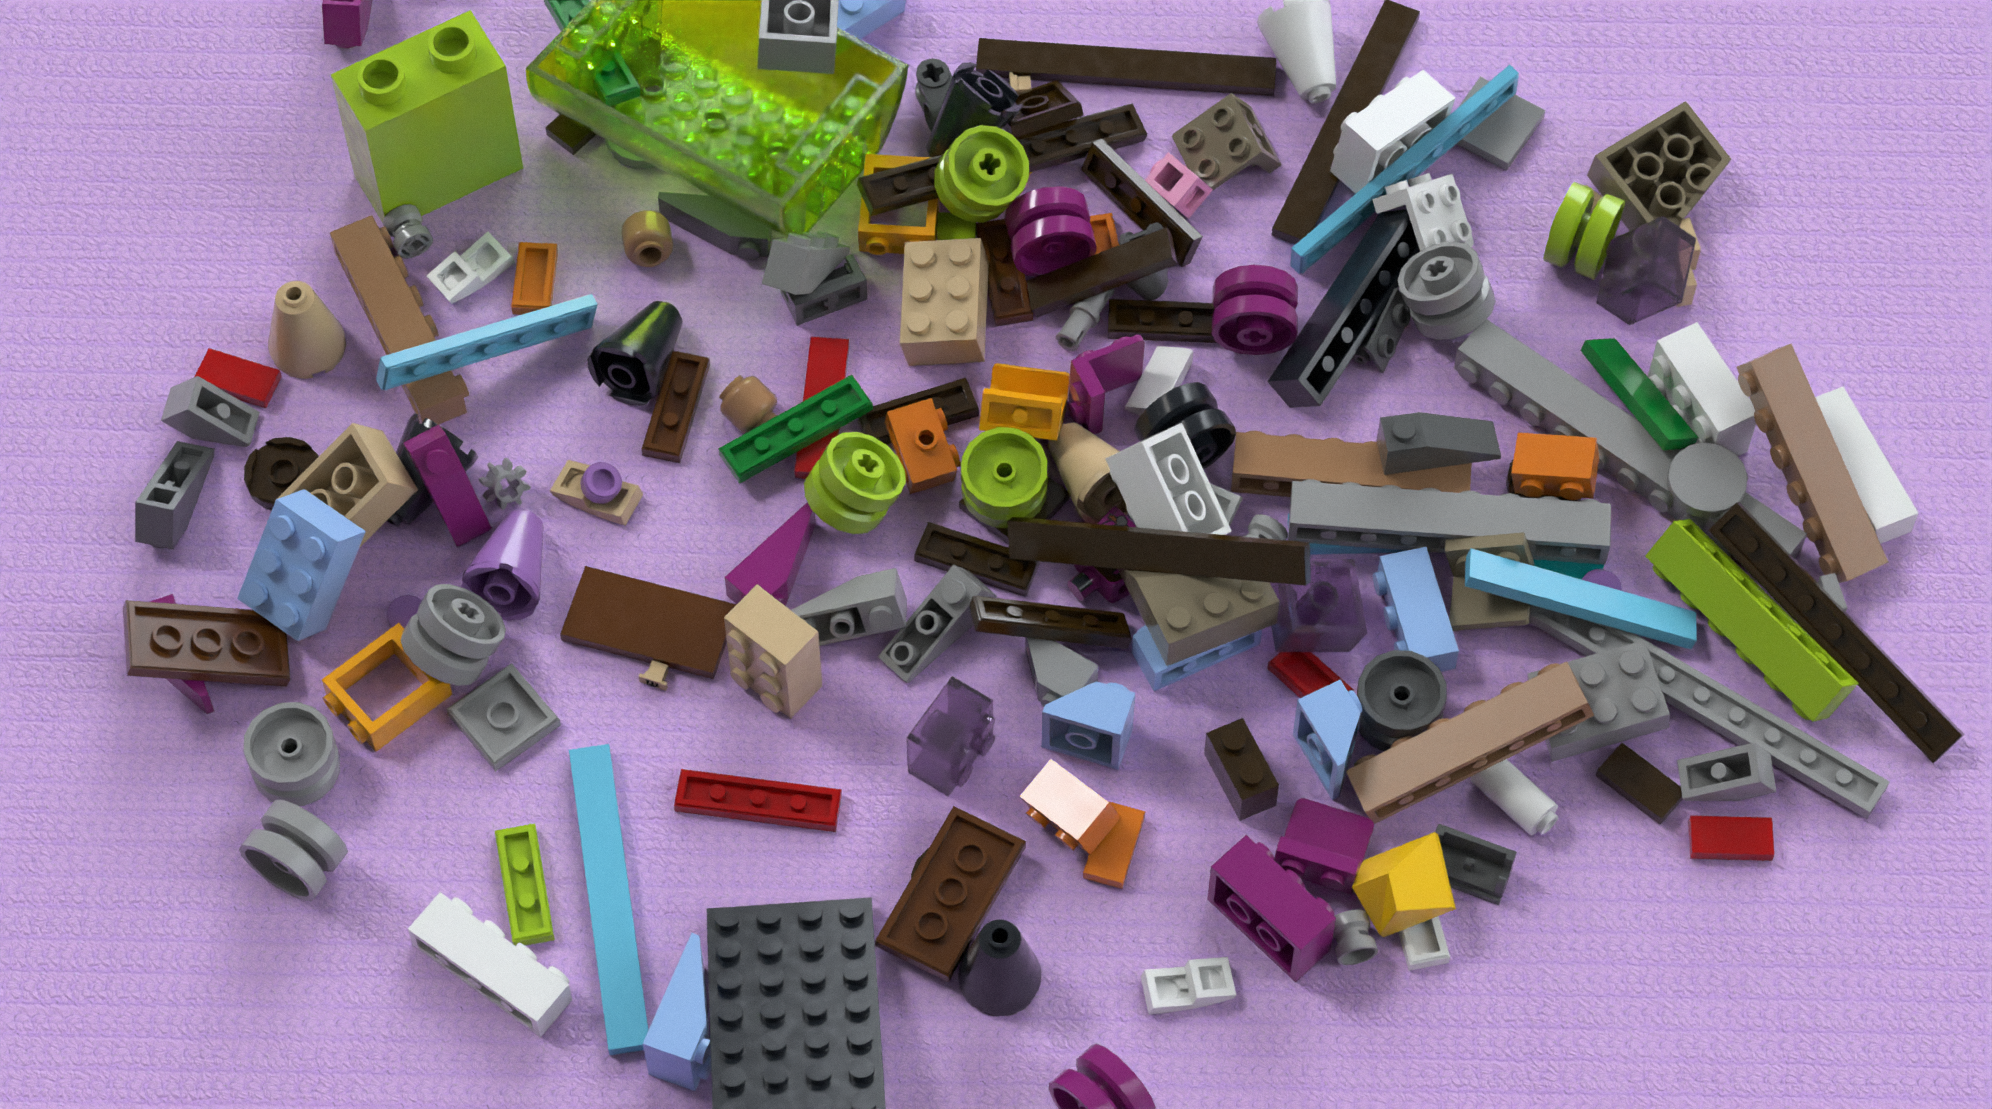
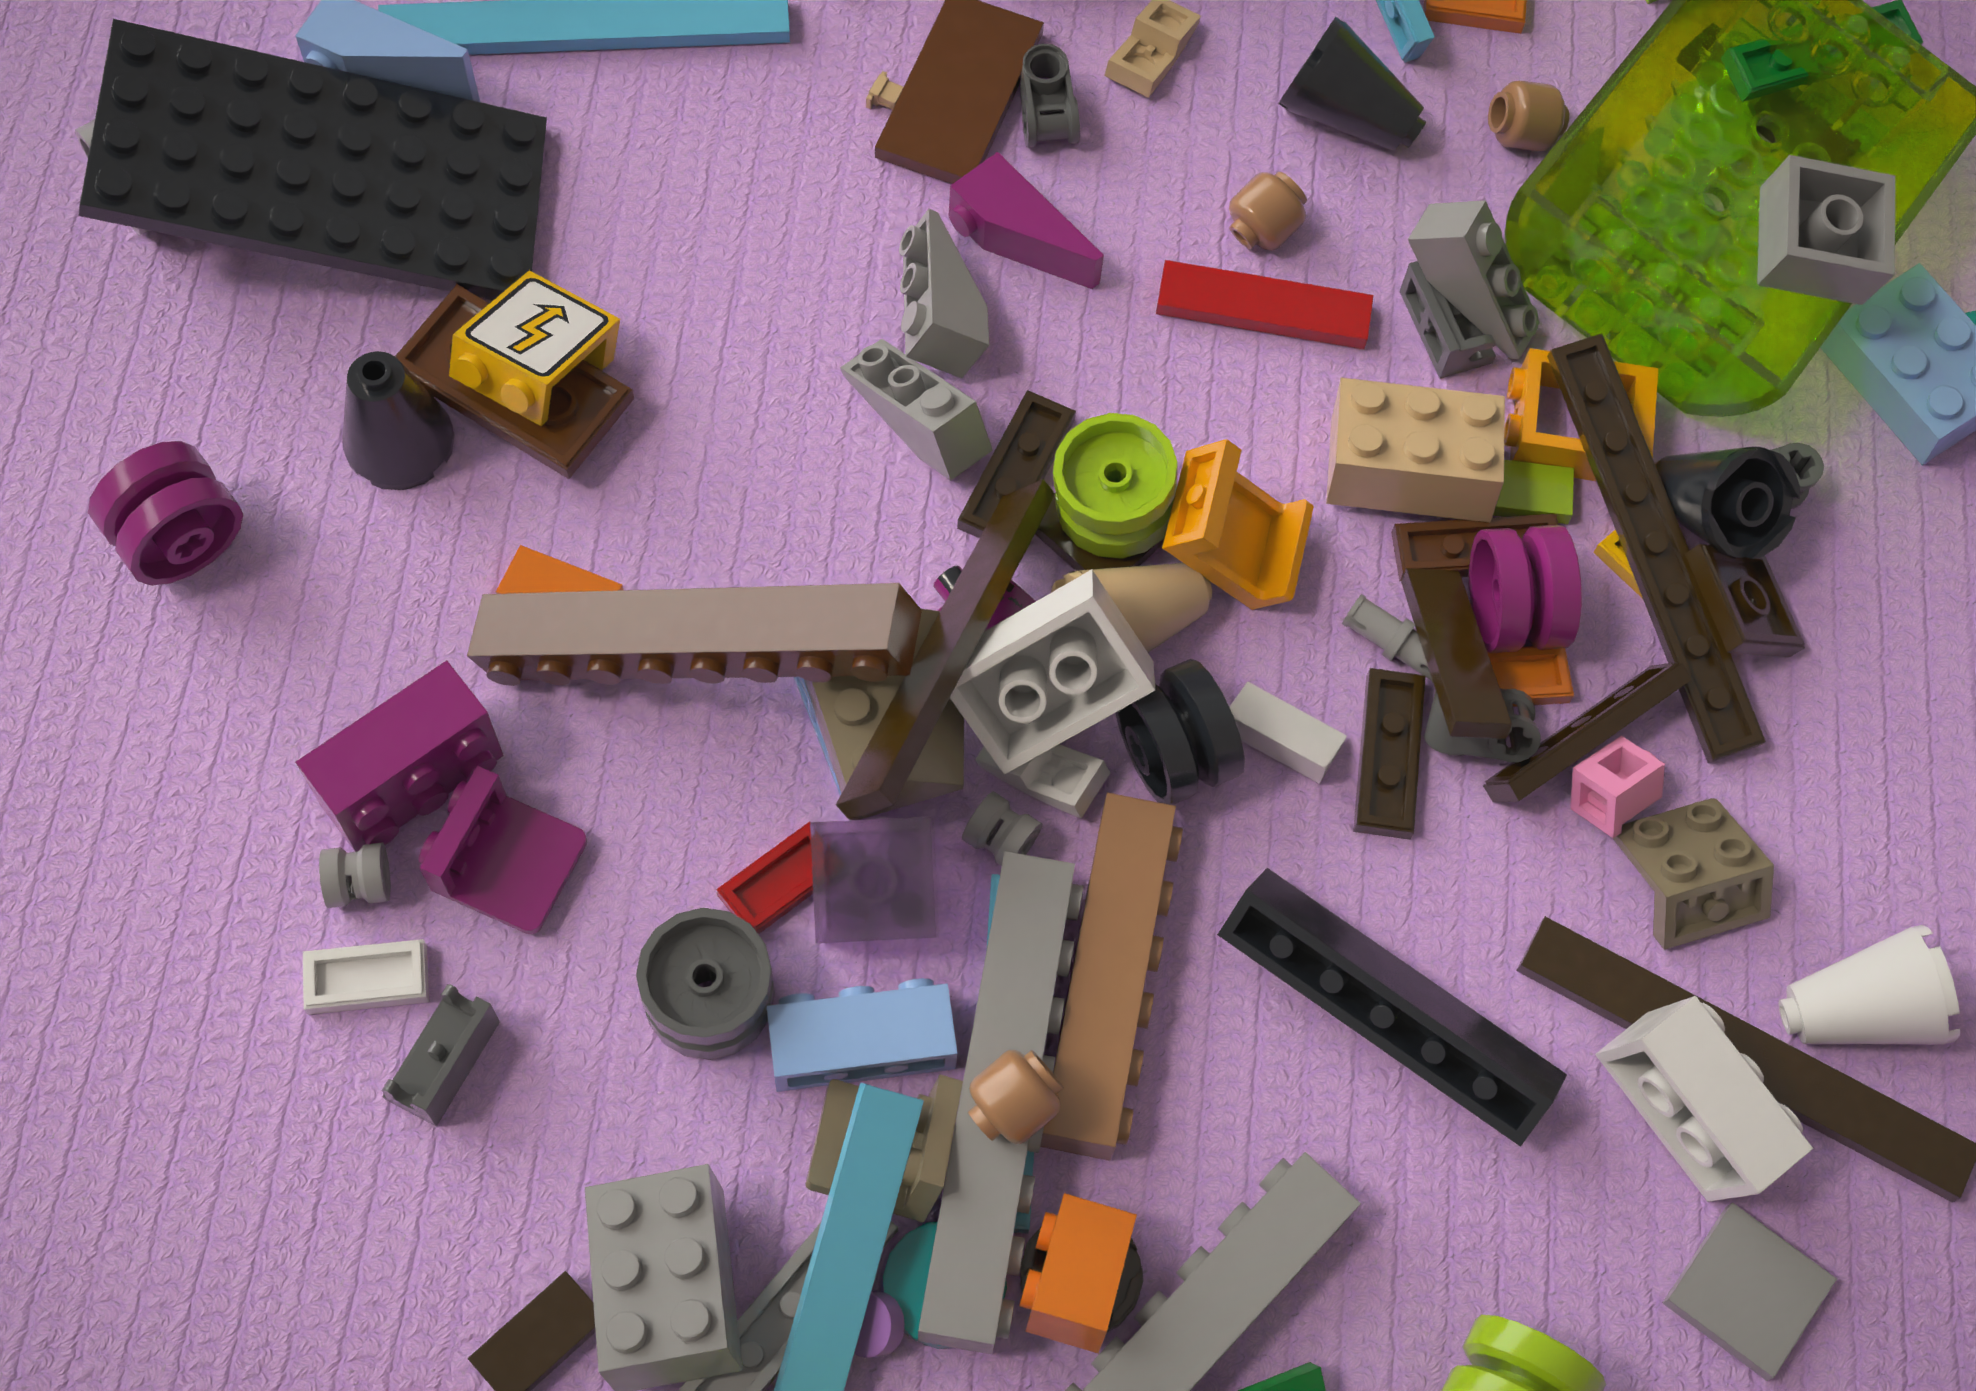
camera: 90 degrees right, 5 degrees up
(601, 482) = (1155, 36): medium lavender tile -> none
(662, 556) = (1048, 104): none -> dark grey piece
(675, 406) = (1276, 141): reddish brown tile -> none
(758, 800) = (692, 190): red tile -> none
(773, 652) = (866, 179): tan brick -> none
(795, 429) = (1226, 262): green tile -> none
(854, 483) = (1154, 300): lime wheel -> none
(922, 445) = (1190, 398): orange brick -> none
(929, 870) = (530, 343): none -> panel
(951, 737) = (728, 388): clear purple brick -> none
(953, 397) = (1251, 416): dark brown tile -> none
(981, 173) = (1612, 452): lime wheel -> none
(1019, 83) = (1798, 597): tan piece -> none
(1050, 622) = (889, 499): dark brown tile -> none
(1057, 669) = (819, 538): light grey slope -> none
(1070, 807) = (606, 527): brick -> none
(1091, 723) = (719, 545): light blue slope -> none
(1100, 372) = (1271, 608): magenta bracket -> none
(1128, 66) = (1834, 753): dark brown tile -> none
(1170, 715) = (697, 634): none -> brick
(1188, 987) = (333, 659): white slope -> none
(1241, 769) = (637, 756): dark brown brick -> none
(1255, 309) = (1383, 854): magenta wheel -> none
(1327, 732) = (653, 870): light blue slope -> none
(1382, 342) = (1354, 1062): dark grey hinge -> none
(1405, 885) = (410, 945): yellow slope -> none
(1406, 167) = (1653, 1130): medium azure tile -> none
(1432, 209) = (1557, 1148): white bracket -> none
(1434, 441) = (1127, 1085): dark grey slope -> none
(1446, 290) = (1409, 1147): light grey wheel -> none
(1462, 494) = (1015, 1096): none -> medium nougat head
(1469, 742) = (605, 1068): medium nougat brick -> none
(1517, 797) = (540, 1139): white brick -> none

